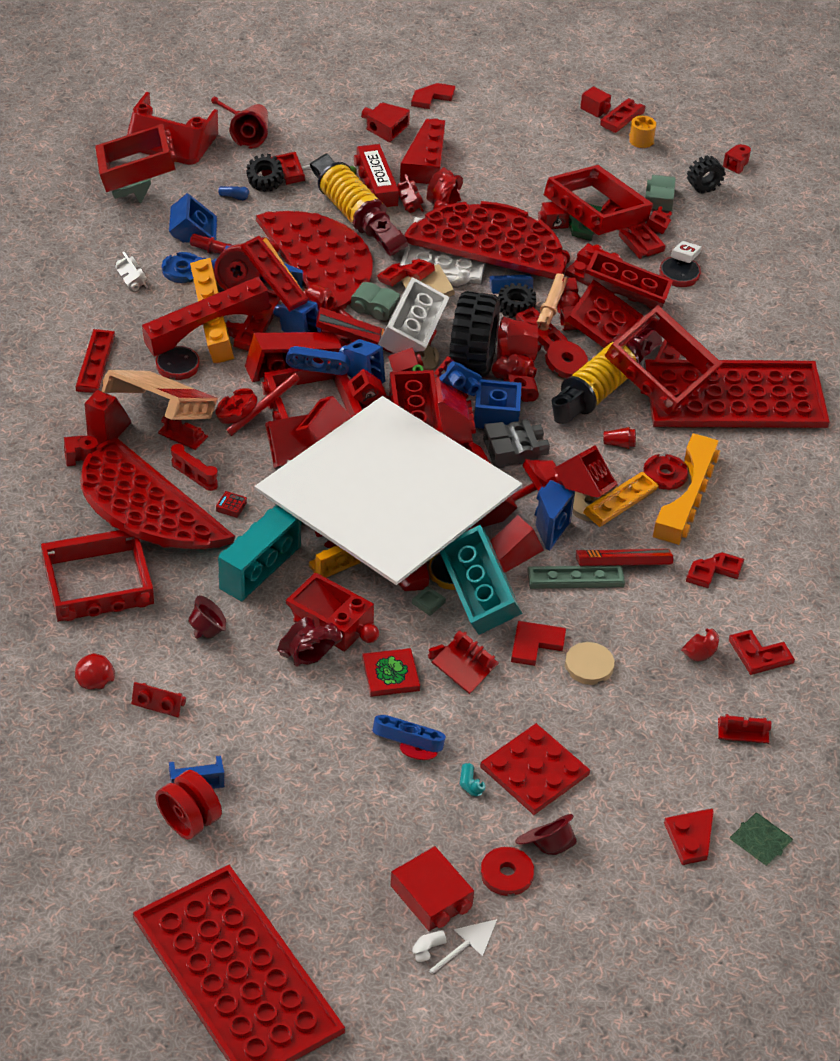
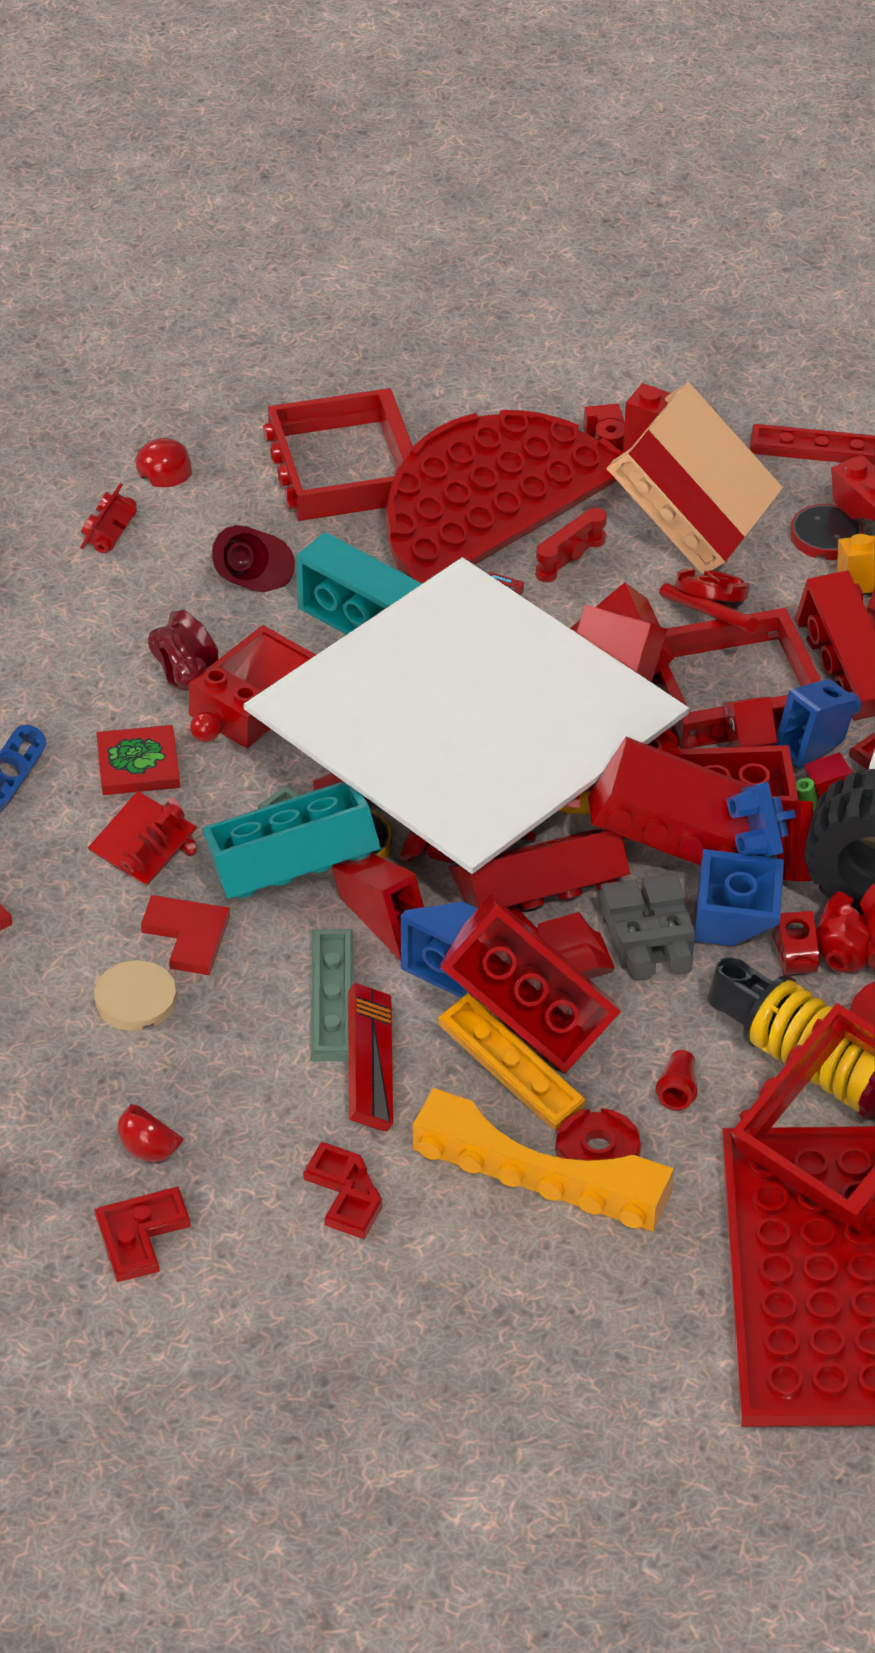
camera: 95 degrees right, 0 degrees up
(182, 433) = (648, 545): red hinge -> none
(332, 368) = (806, 651): blue beam -> none

